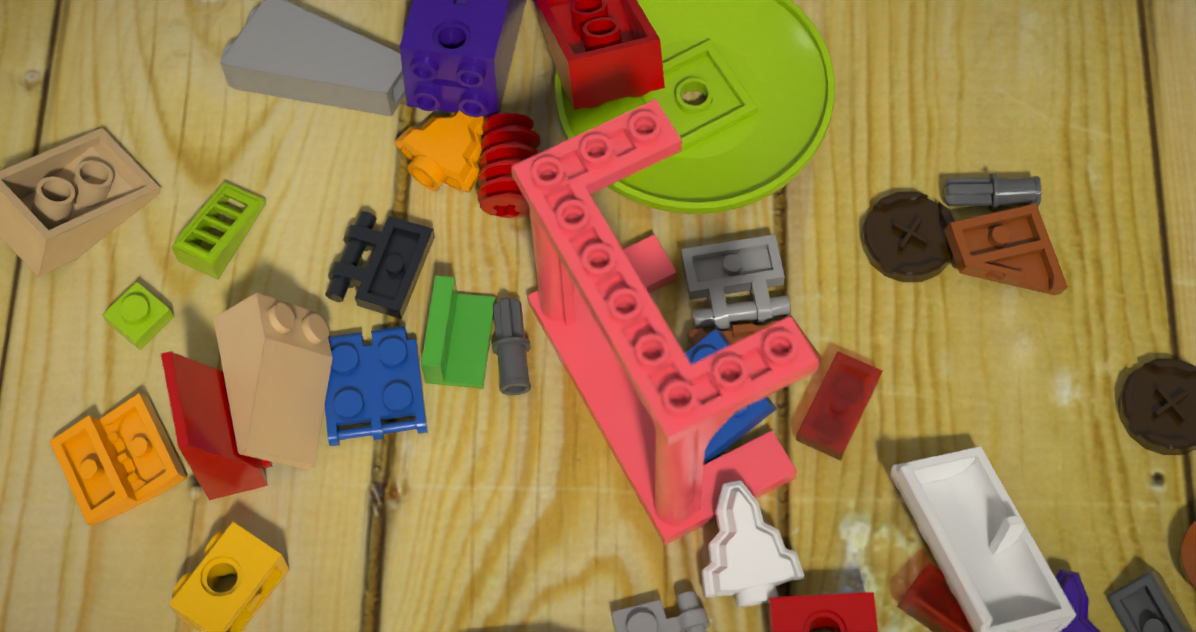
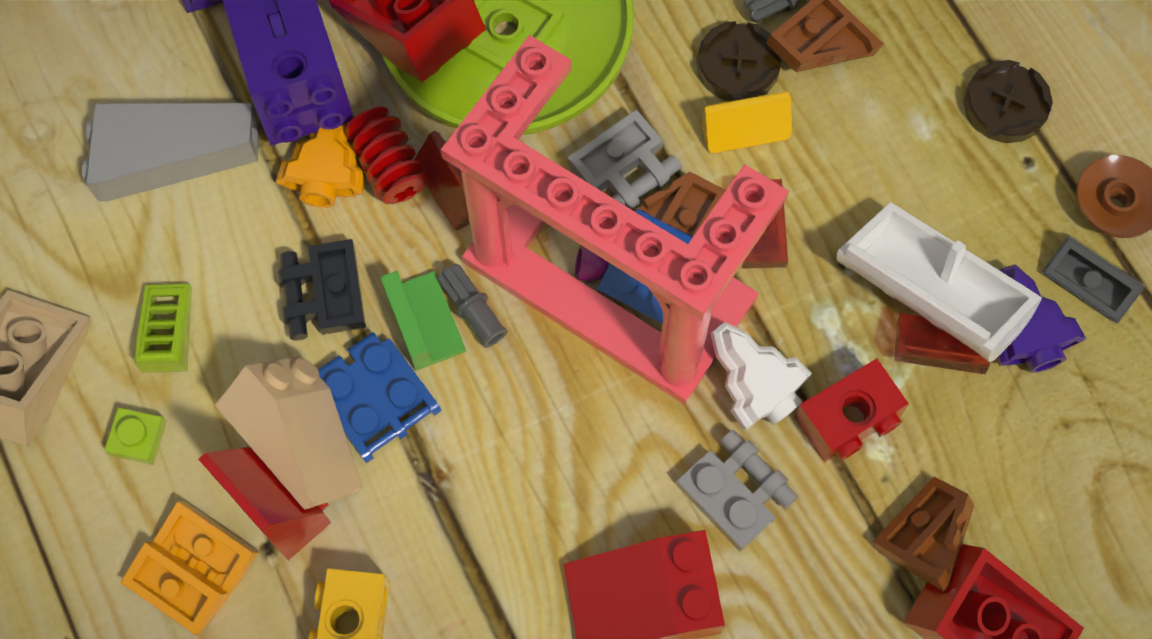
camera: 30 degrees left, 5 degrees up
(881, 299) = (747, 122): none -> yellow slope

